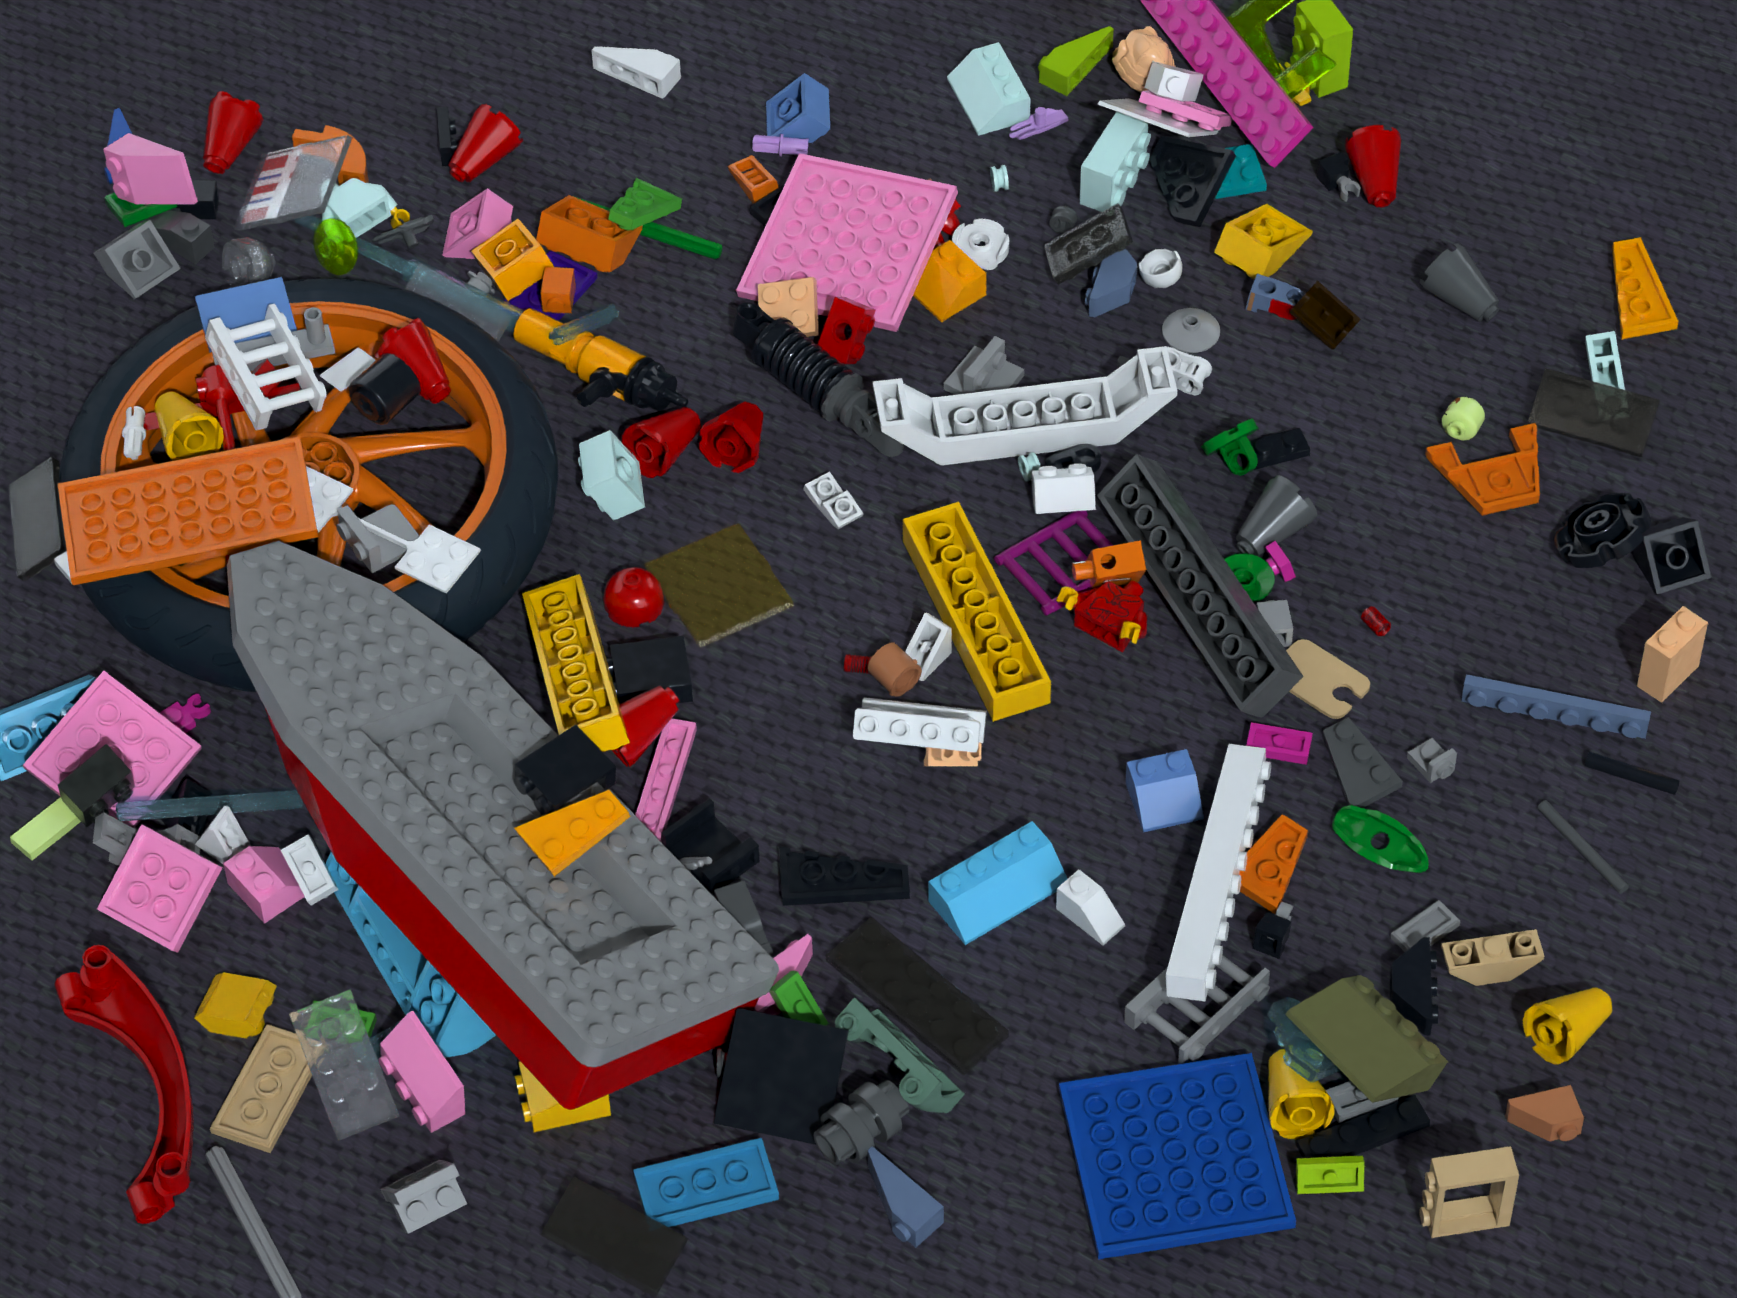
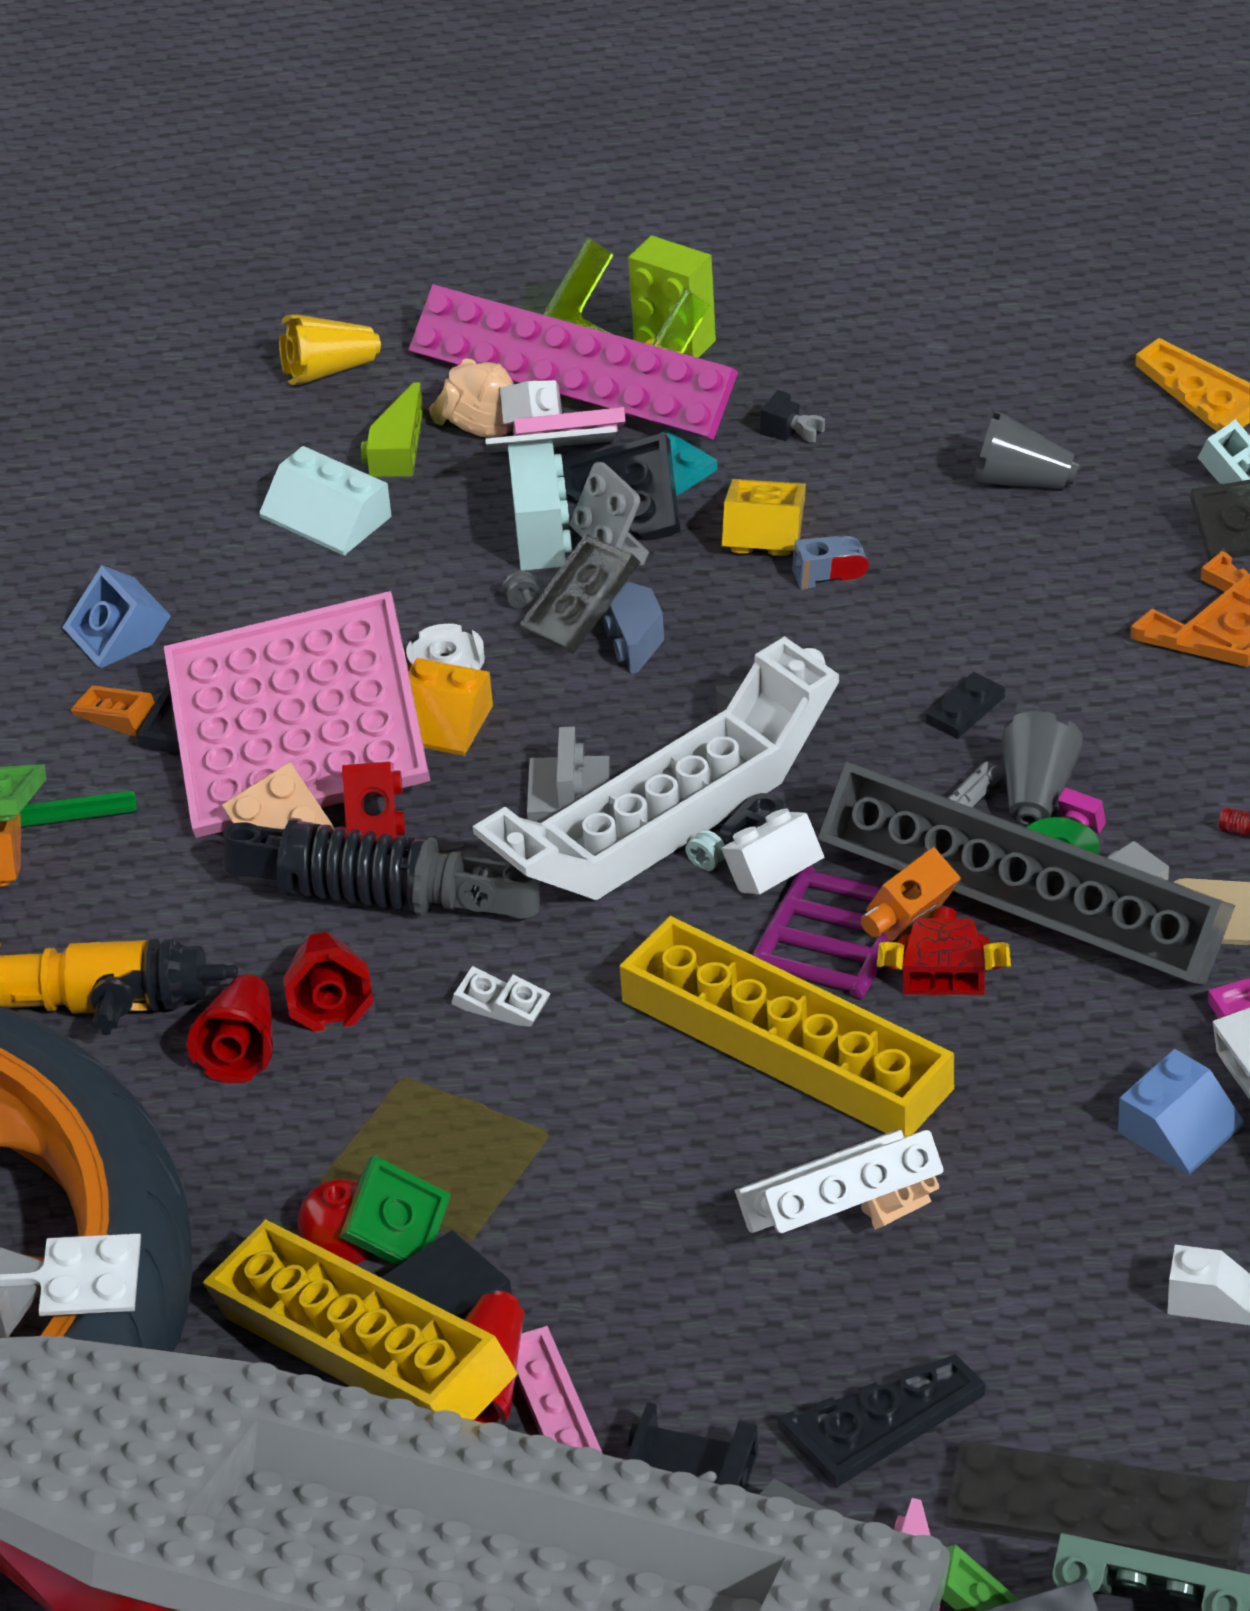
camera: 30 degrees left, 10 degrees down
(563, 770) = (484, 1442): black panel -> none
(573, 830) = (555, 1508): light orange wing -> none
(584, 323) = (37, 942): clear light blue axle -> none
(611, 475) = (208, 1093): light aqua brick -> none
(660, 607) = (394, 1212): none -> green tile
(780, 145) = (120, 659): lavender axle -> none
(848, 659) = (701, 1151): red piece -> none
(894, 669) = (743, 1140): nougat piece -> none
(930, 644) = (760, 1096): white slope -> none
(997, 883) = (1081, 1319): medium azure slope -> none
(999, 178) = (410, 581): light aqua bush -> none
(1039, 122) = (406, 512): lavender piece -> none
(1147, 199) = (608, 510): none -> light grey bracket
(1161, 268) = (678, 586): white hair -> none
(1191, 338) = (755, 631): light grey dish -> none
(1226, 511) = (976, 784): none -> light grey axle
(1232, 443) = (921, 715): green tile -> none
(1325, 315) = (904, 548): dark brown hinge -> none
(1375, 162) = (822, 385): red cone -> none
(1463, 416) = (1141, 581): yellowish green head -> none

